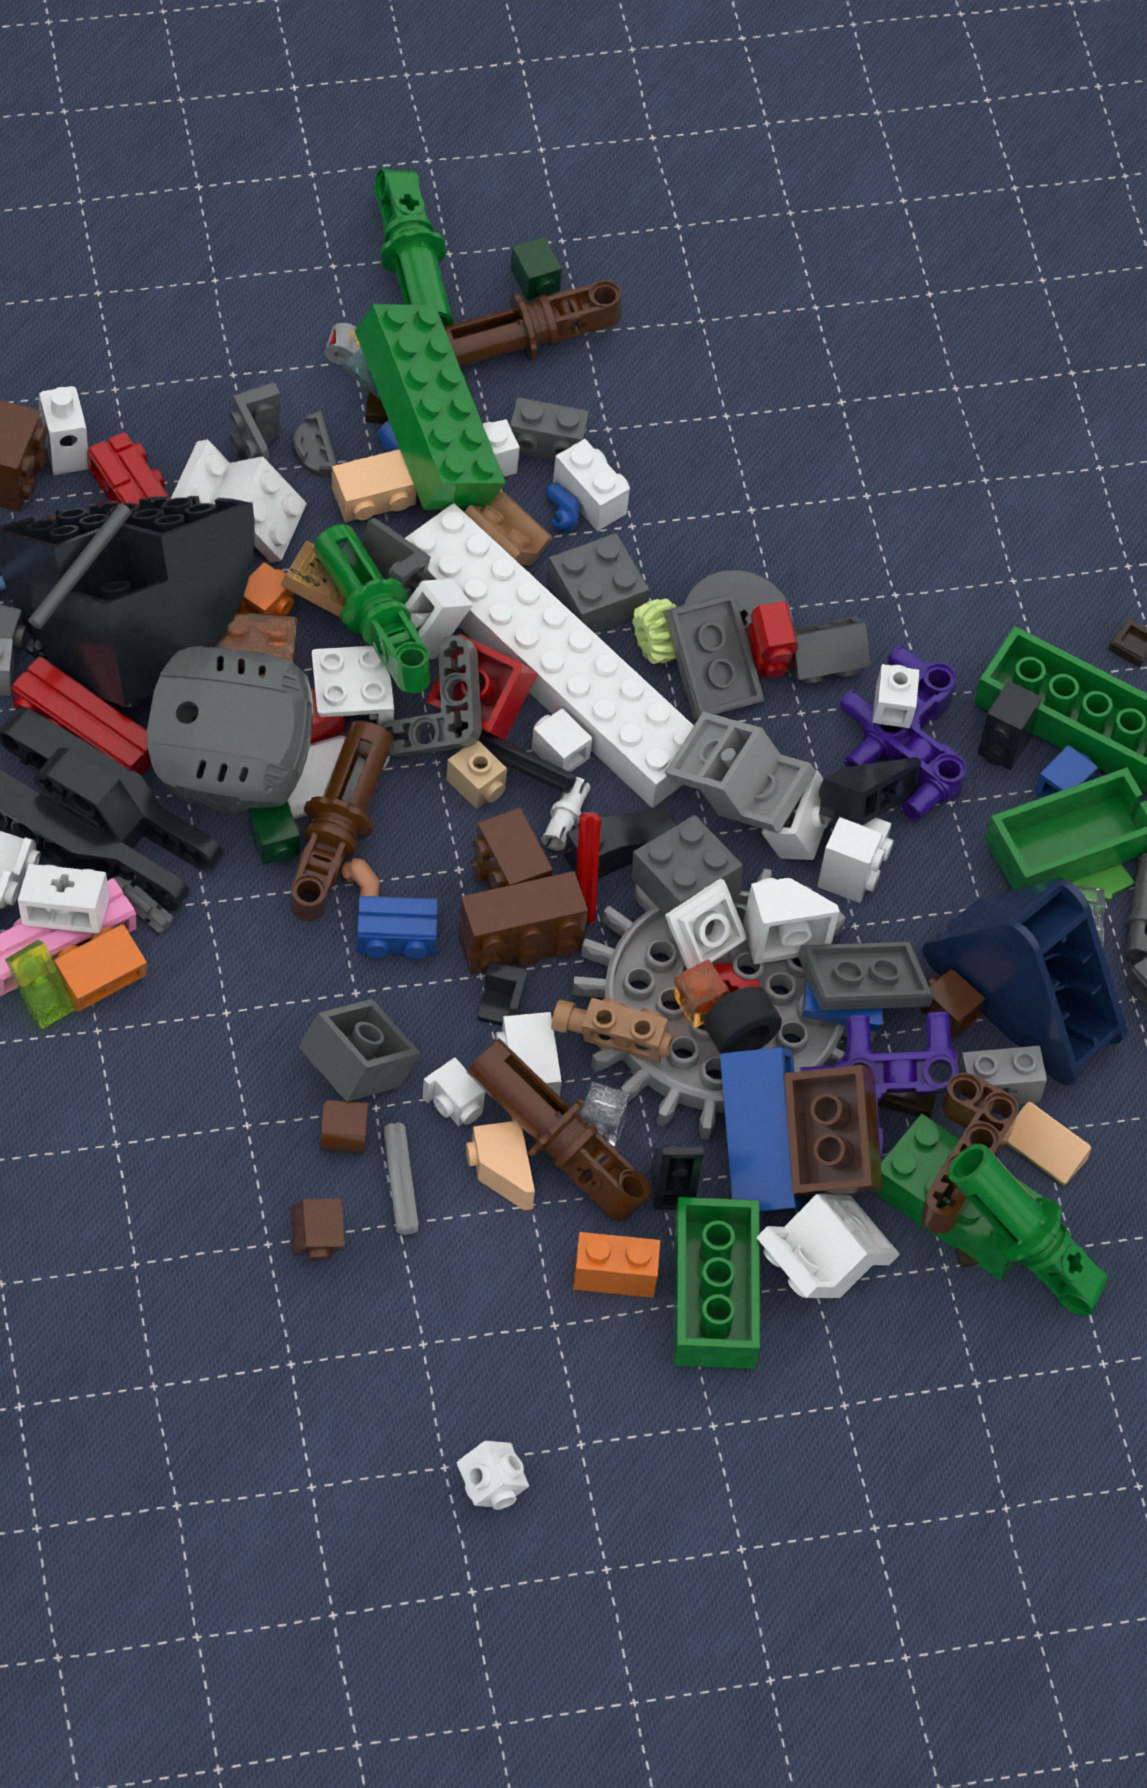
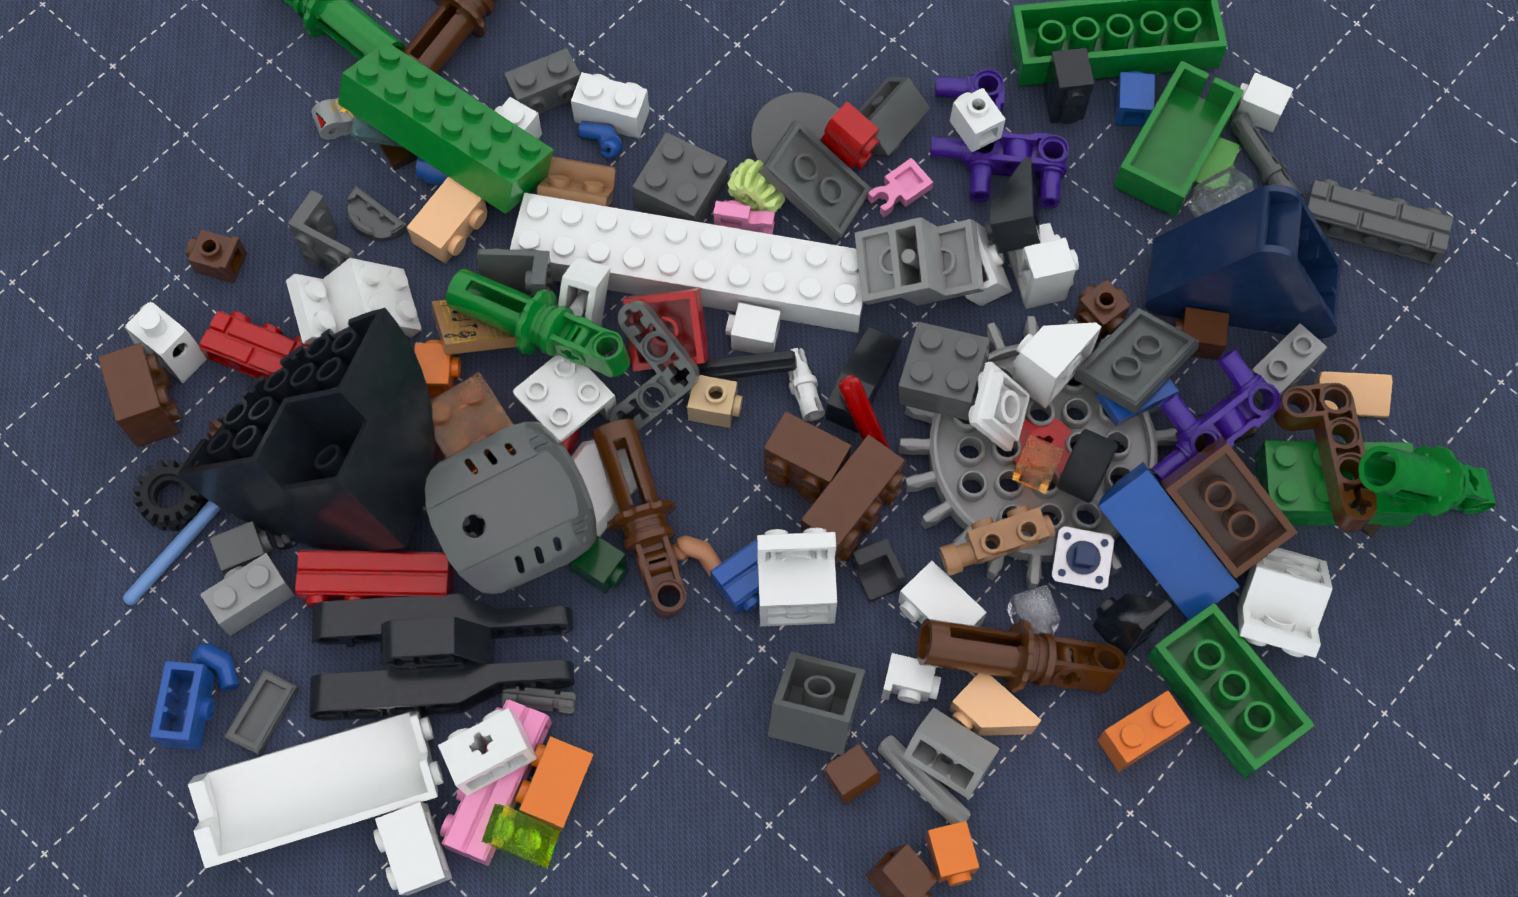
camera: 30 degrees left, 10 degrees up
(80, 566) = (285, 461): dark grey bar -> none
(160, 391) = (221, 263): none -> reddish brown brick
(375, 1239) = (952, 853): none -> orange brick
(421, 943) = (797, 577): none -> white bracket
(439, 1166) = (950, 752): none -> light grey brick
(626, 645) = (740, 216): none -> bright pink plate
(678, 1096) = (1081, 559): none -> piece
(794, 715) = (902, 184): none -> bright pink plate
(878, 920) = (1102, 305): none -> reddish brown brick

